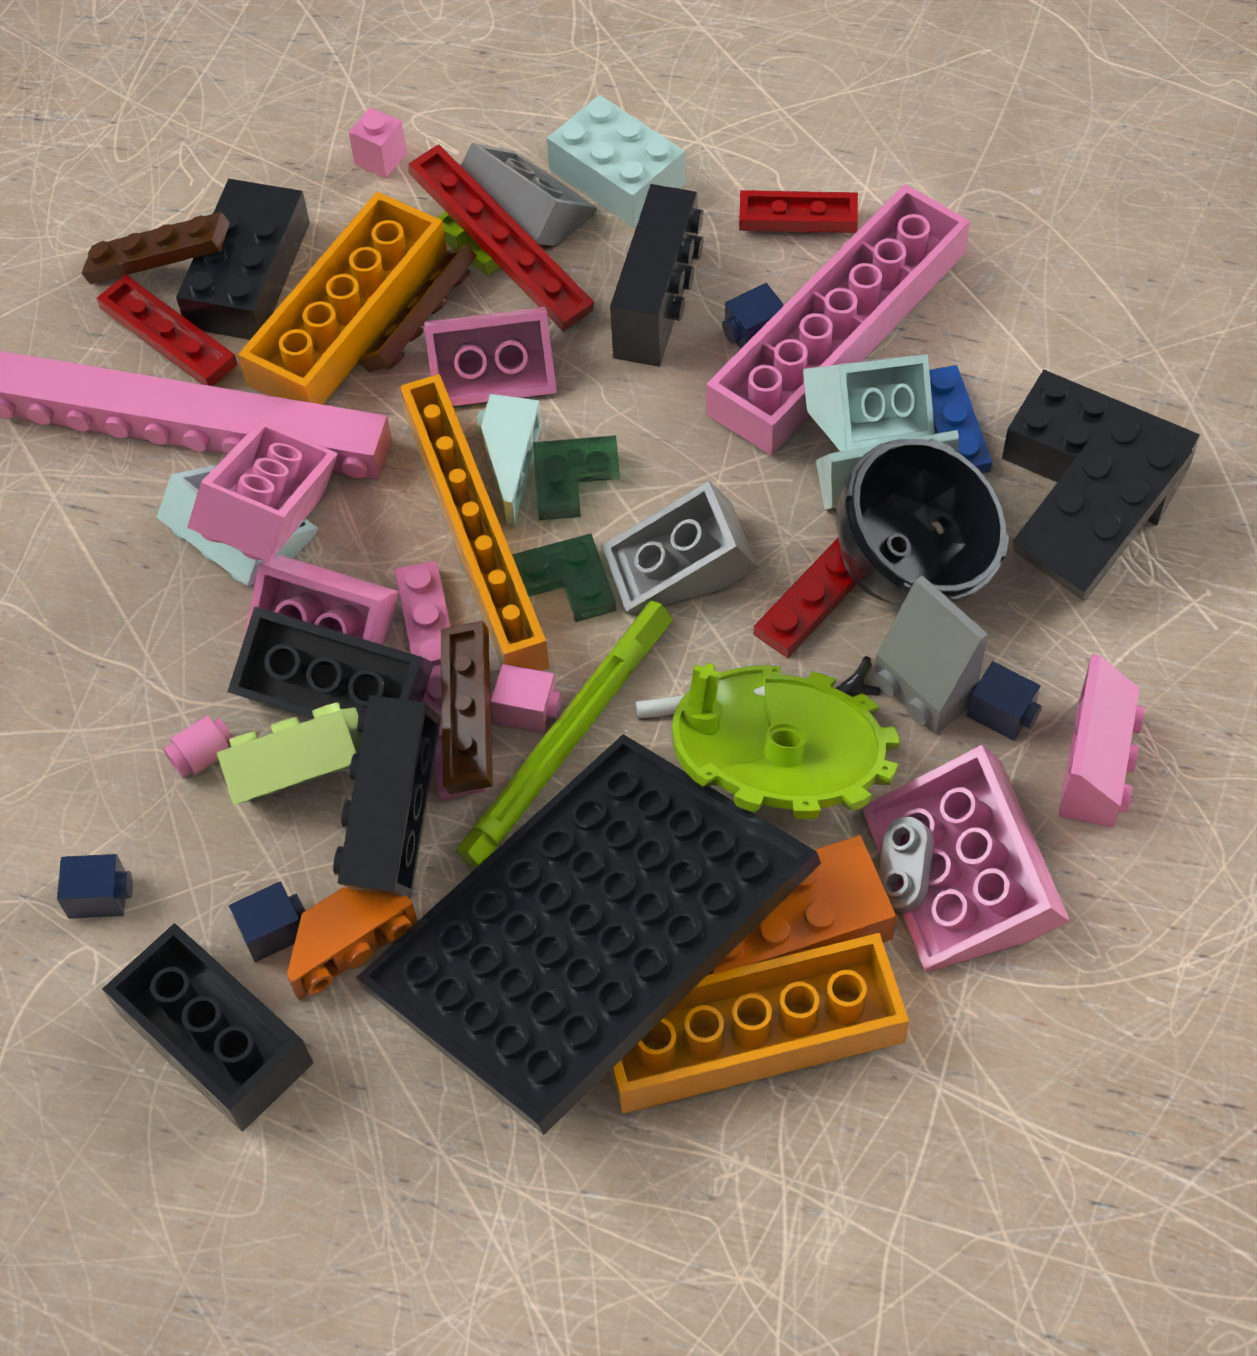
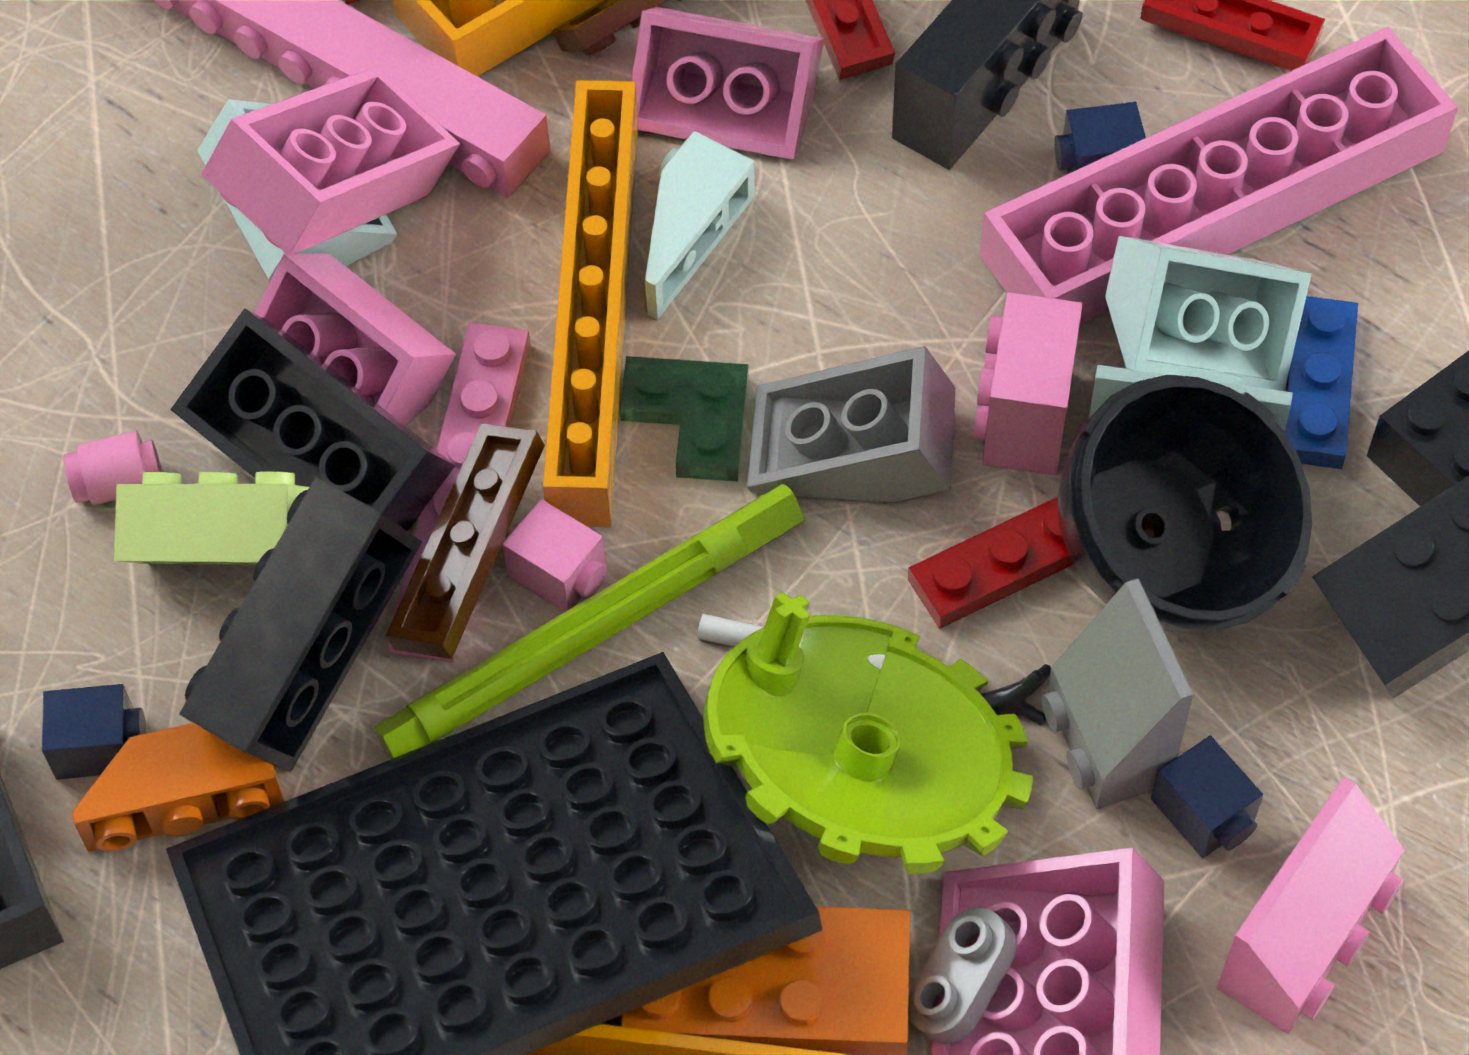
camera: 20 degrees right, 0 degrees up
(565, 463) = (755, 259): clear green plate -> none
(781, 482) = (1027, 382): none -> bright pink brick

